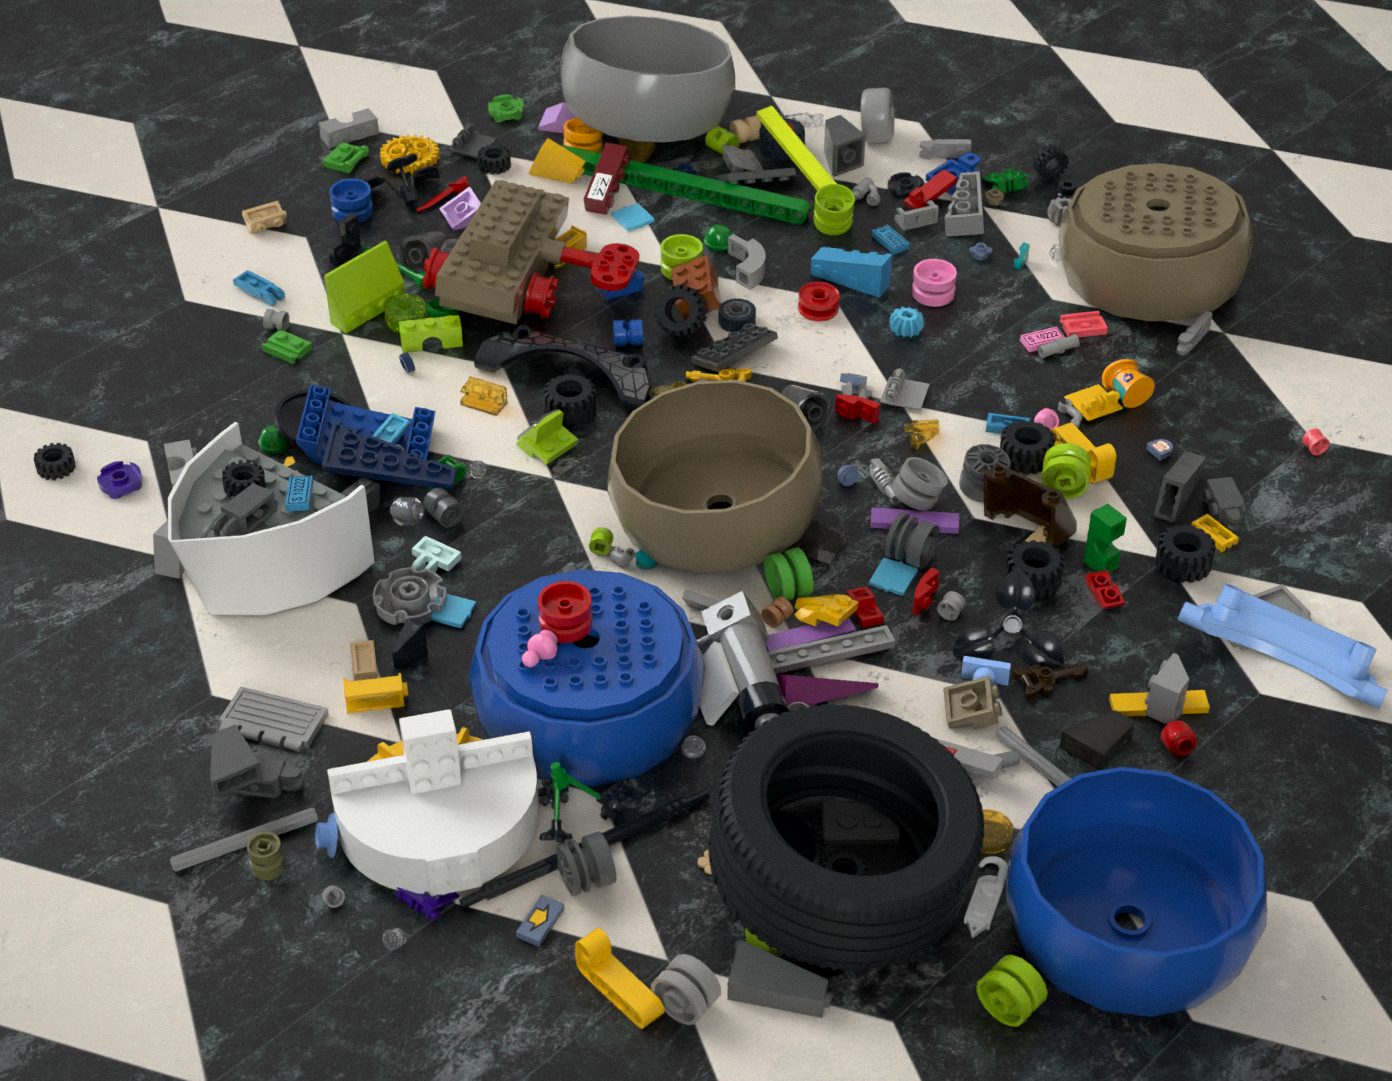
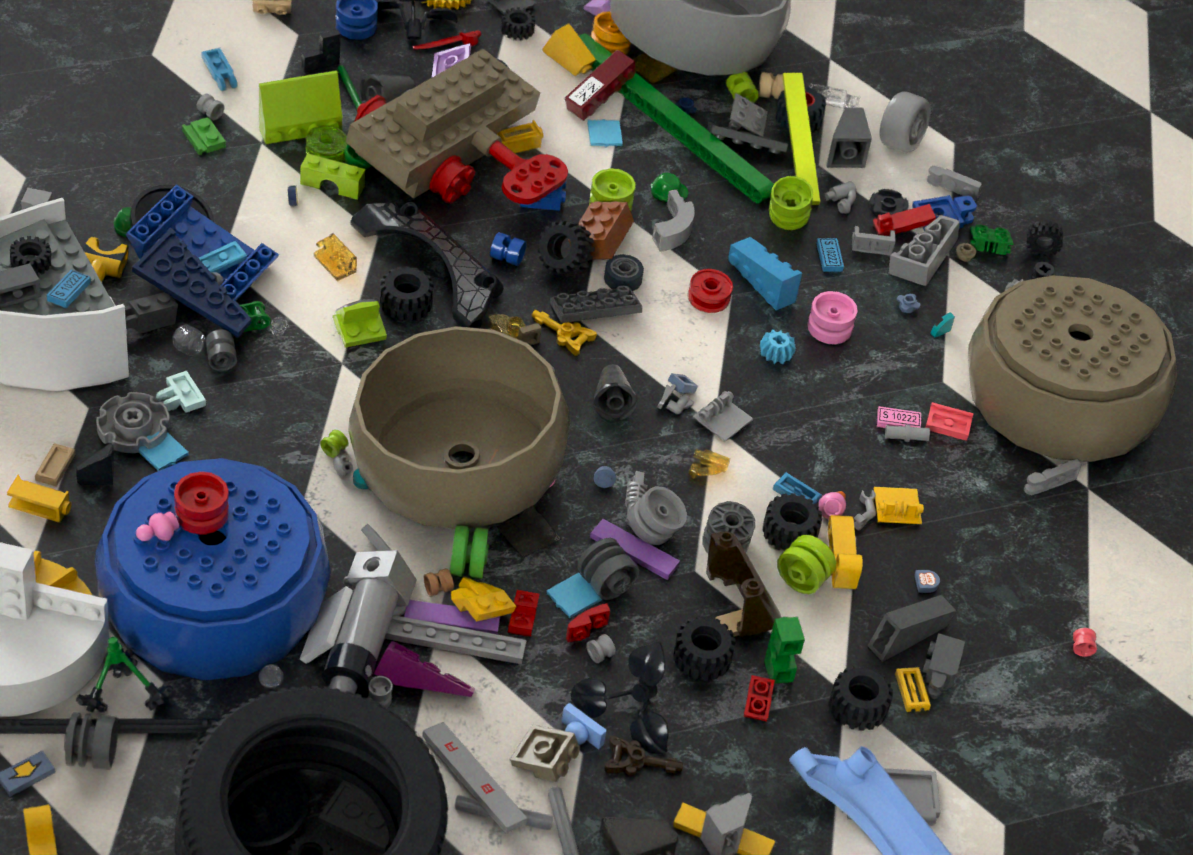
camera: 20 degrees right, 5 degrees up
(854, 406) = (663, 411): red slope -> none
(1129, 382) = (939, 500): light orange hat -> none

